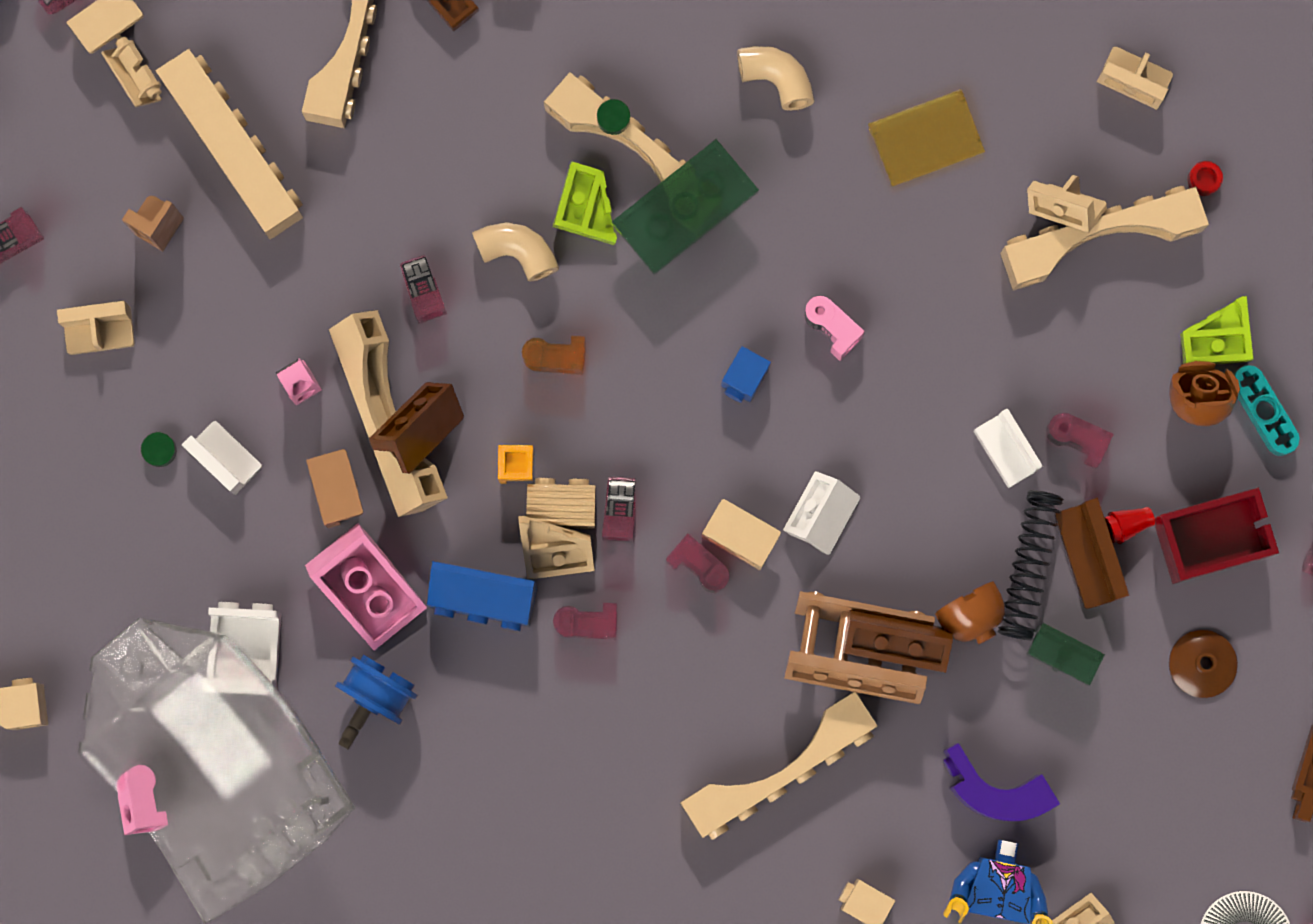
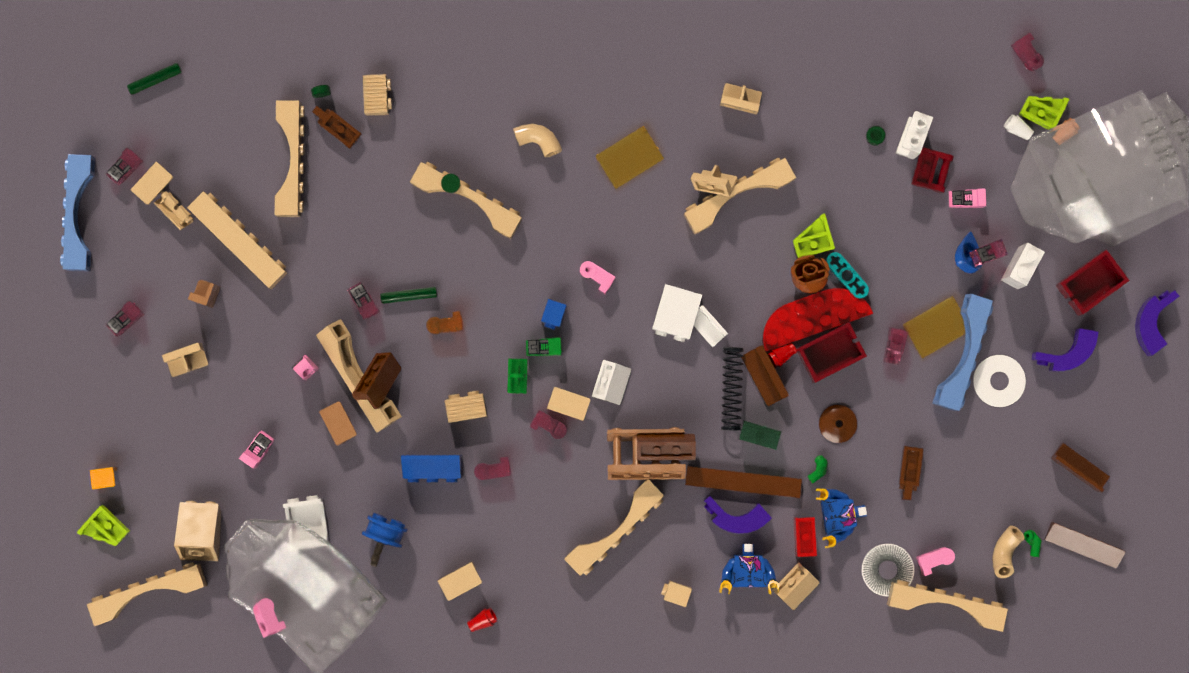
camera: 10 degrees left, 5 degrees up
(52, 626) = (198, 531): none -> tan slope
(158, 449) = (235, 420): dark green tile -> none
(185, 506) = (257, 449): none -> leg
(223, 457) = (272, 418): white panel -> none
(365, 586) = (366, 474): bright pink slope -> none
(489, 805) = (460, 581): none -> tan panel
(502, 294) = (408, 295): none -> dark green axle
(515, 463) = (435, 390): light orange panel -> none
(516, 882) = (484, 619): none -> red cone
(519, 243) = (411, 264): tan cylinder -> none
(554, 549) = (466, 433): tan wing -> none
(585, 205) = (445, 235): lime wing -> none
(619, 509) = (498, 403): leg -> none
(661, 468) = (517, 376): none -> green hips
(685, 206) = (501, 226): clear green tile -> none
(717, 429) = (544, 347): none -> leg
(958, 415) = (676, 313): none -> white panel
(974, 614) = (705, 424): dark orange cylinder -> none
(1020, 732) = (743, 482): none -> reddish brown tile
(1080, 435) = (742, 309): clear pink leg -> none
(1111, 848) = (805, 536): none -> red panel
(1161, 734) = (821, 469): none -> green arm
(1177, 822) = (838, 515): none -> blue torso
(1193, 469) = (812, 316): none -> red plate
(1205, 177) = (790, 149): red tile -> none

